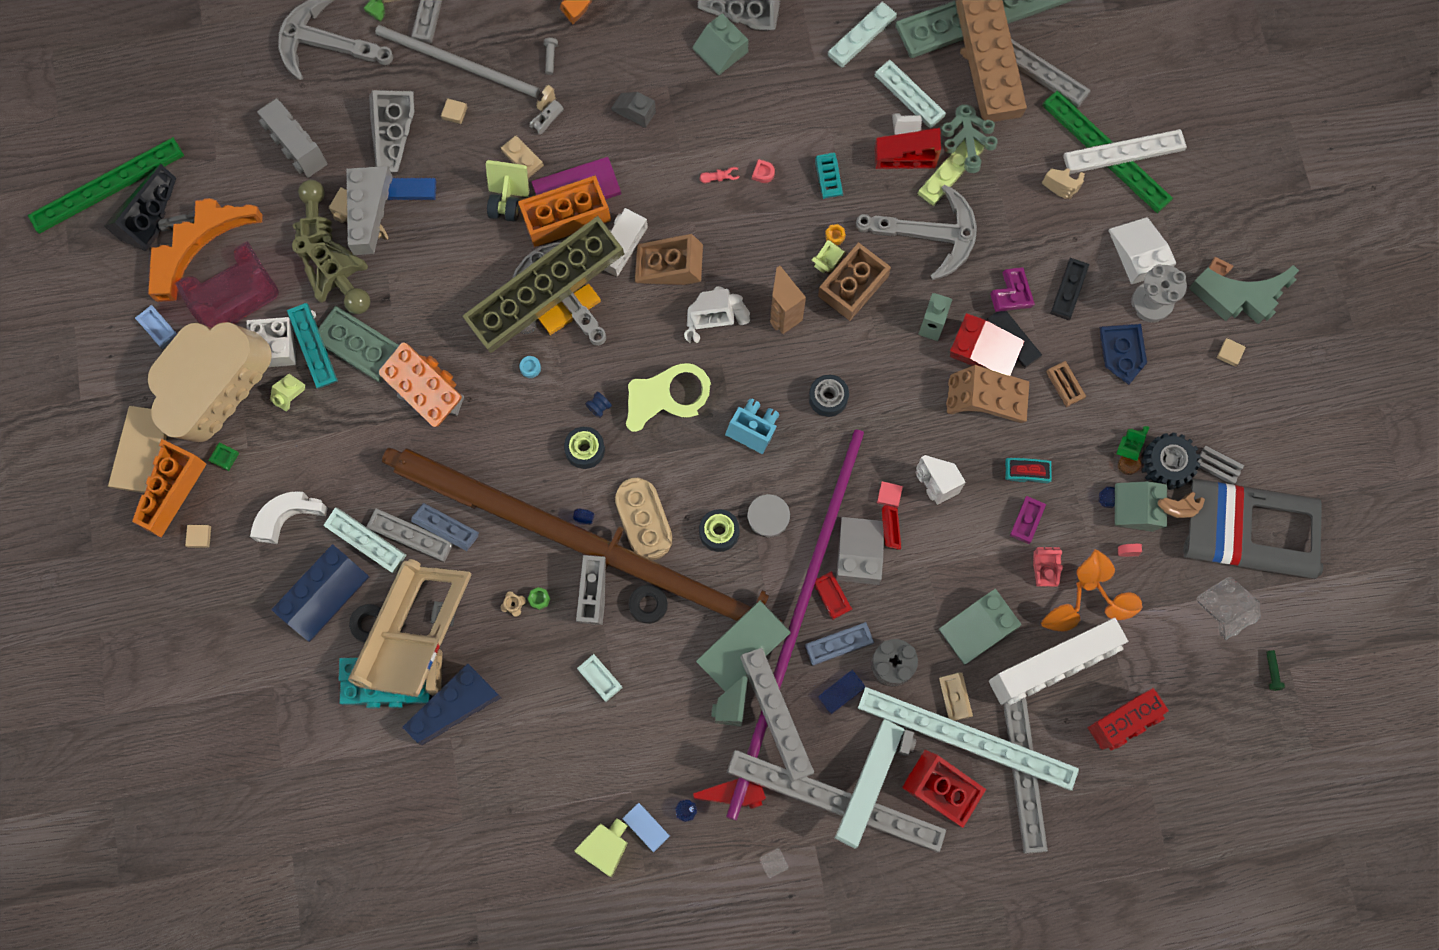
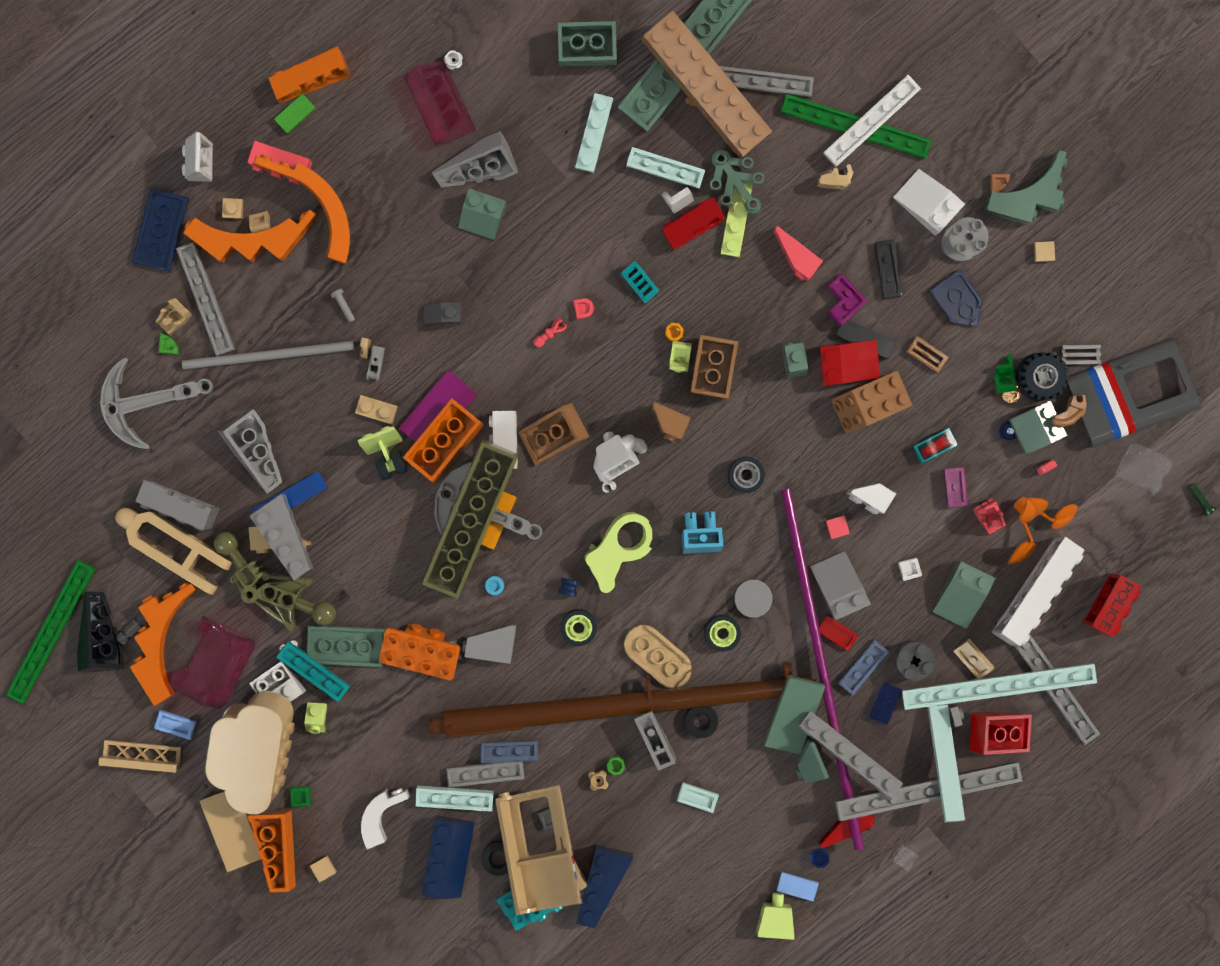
camera: 30 degrees left, 15 degrees up
(100, 339) = (140, 763): none -> tan fence
(282, 185) = (132, 522): none -> tan piece
(454, 111) = (294, 401): tan tile -> none
(493, 417) = (491, 645): none -> light grey slope
(583, 516) = (611, 683): clear blue tile -> none
(891, 527) = (853, 554): red tile -> none
(933, 231) = (765, 278): light grey piece -> none
(939, 574) = (909, 569): none -> white tile
(991, 233) = (800, 259): none -> coral slope

